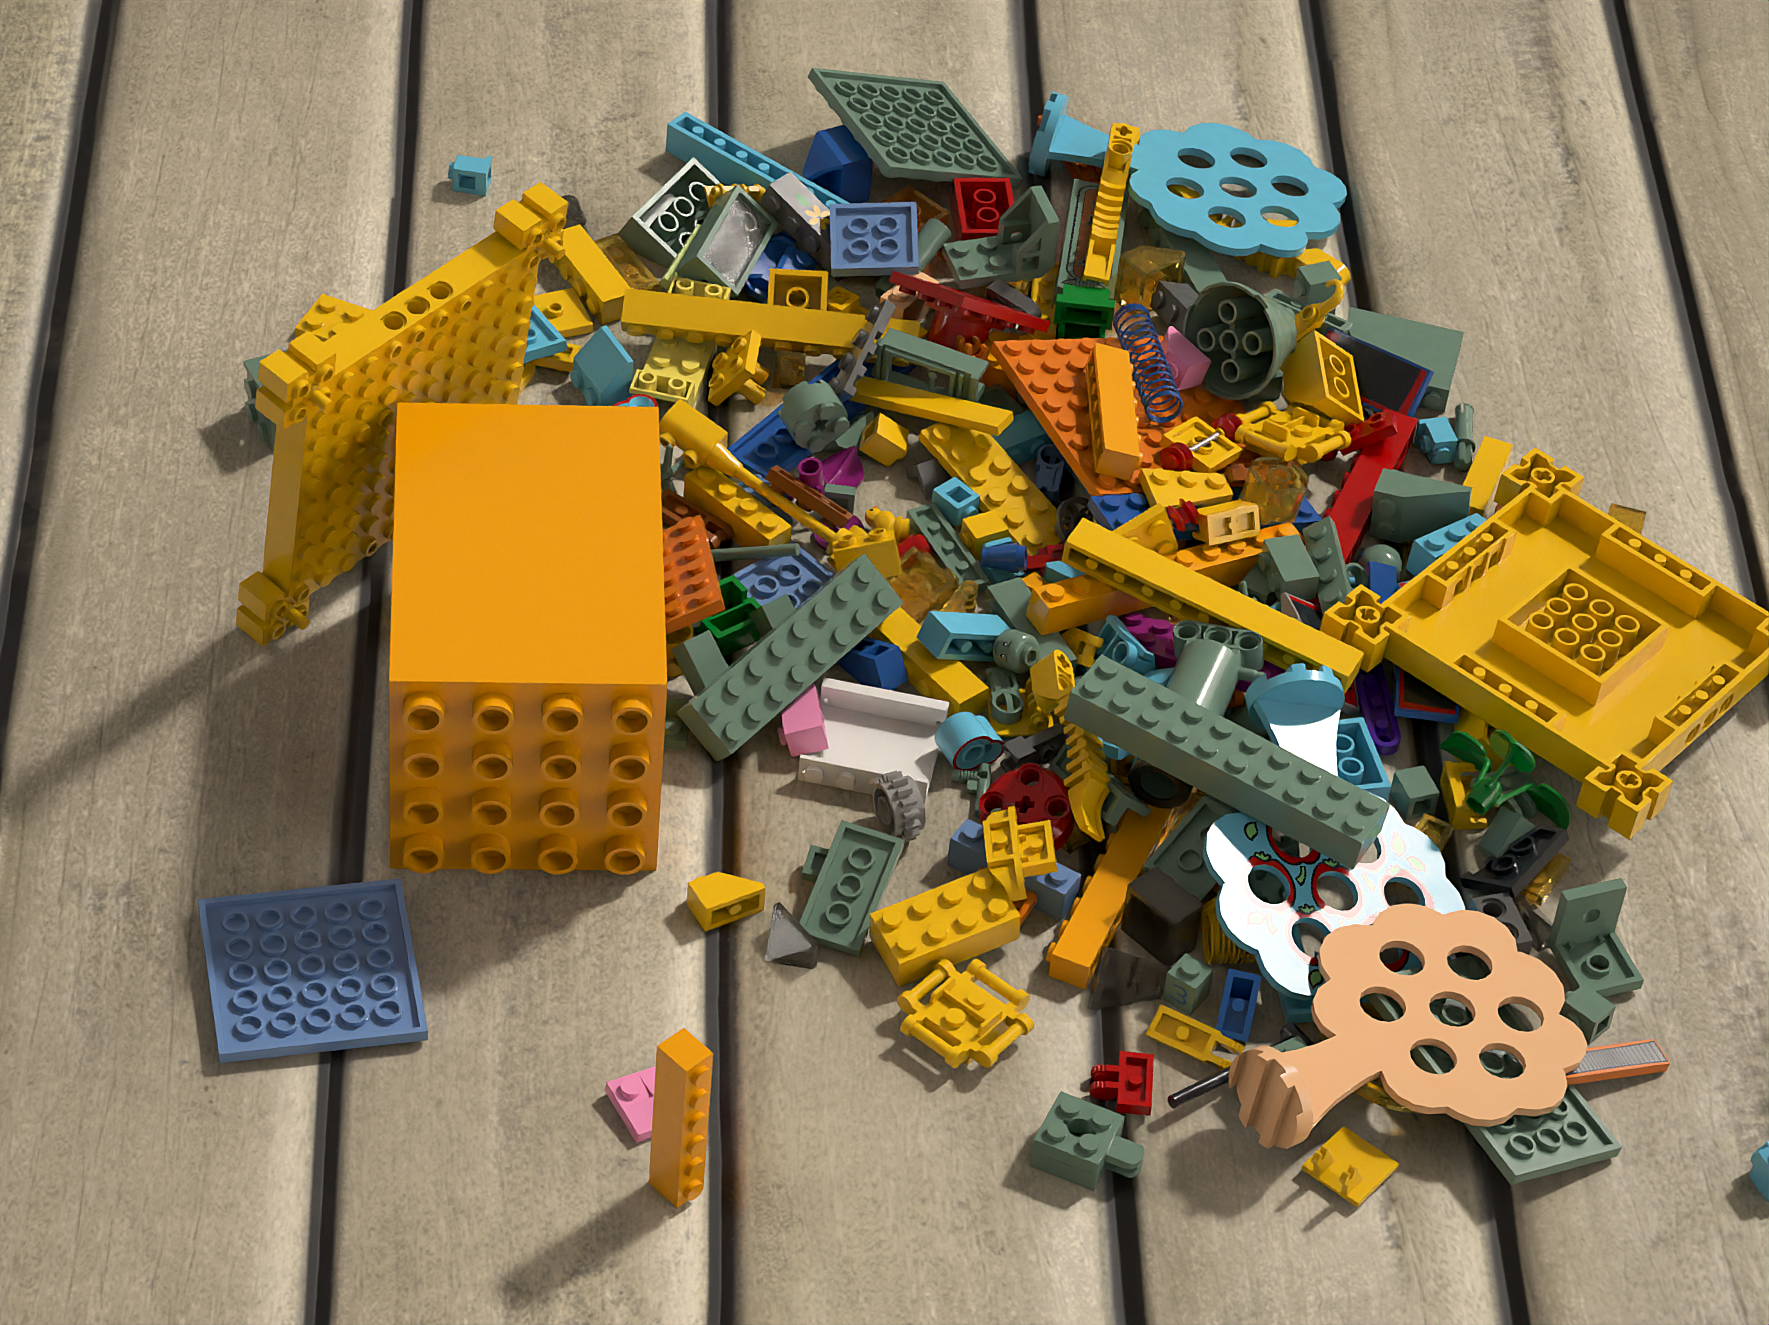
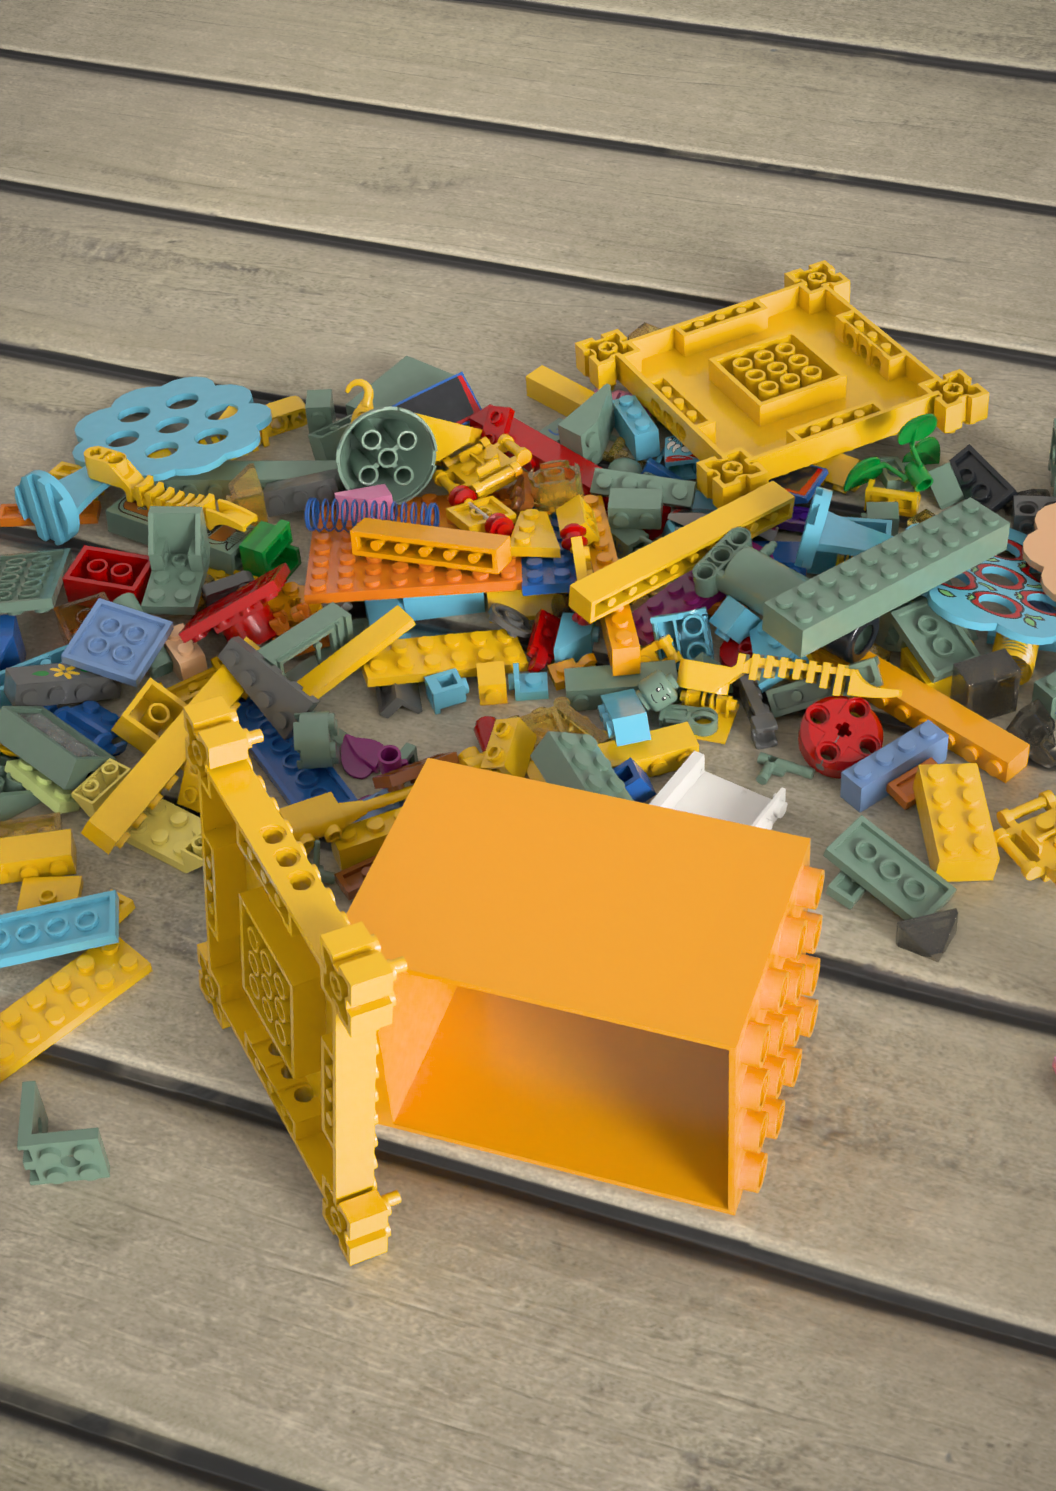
camera: 60 degrees left, 0 degrees up
(311, 970) = (863, 1312): medium blue plate -> none
(603, 370) = (164, 876): medium azure slope -> none
(723, 899) = (867, 968): yellow slope -> none
(884, 440) = (351, 712): yellow brick -> none
(884, 519) = (452, 740): yellow animal -> none
(899, 806) = (810, 812): light grey gear -> none
(946, 545) = (466, 713): sand green plate -> none
(968, 741) = (738, 754): medium azure piece -> none
(1005, 557) = (538, 670): blue cone -> none
(1017, 850) = (907, 740): yellow plate -> none
(1049, 474) = (435, 626): medium blue piece -> none
(1436, 440) = (511, 399): medium azure brick -> none
(1464, 435) = (515, 395): sand green axle -> none

